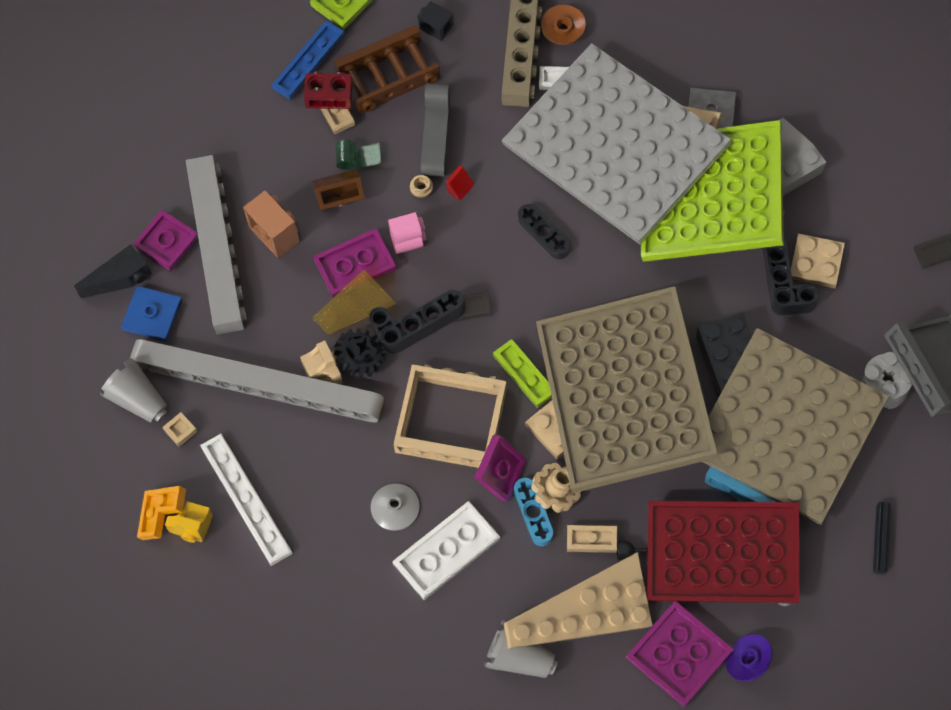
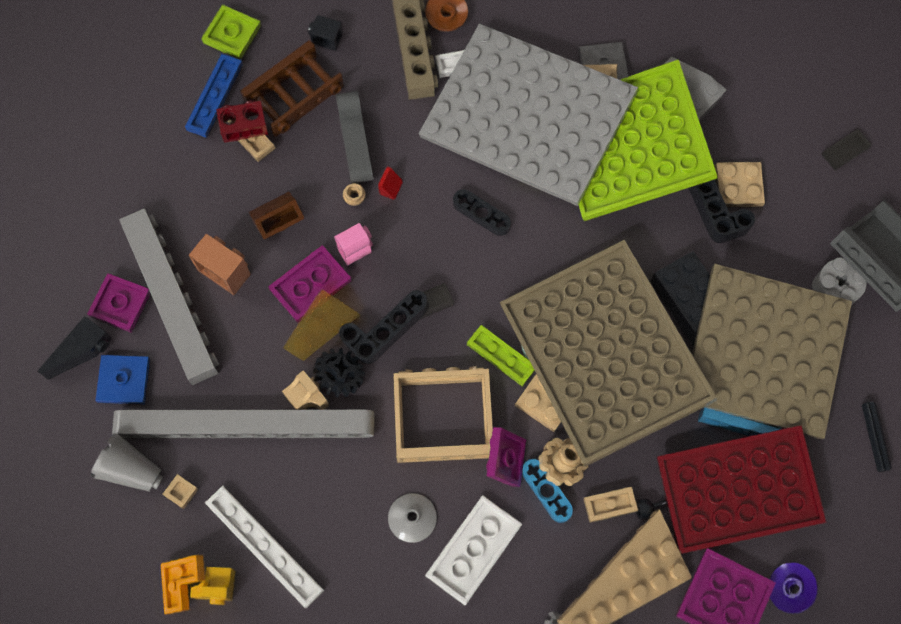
camera: 20 degrees left, 5 degrees up
(353, 157) = (286, 179): clear green panel -> none

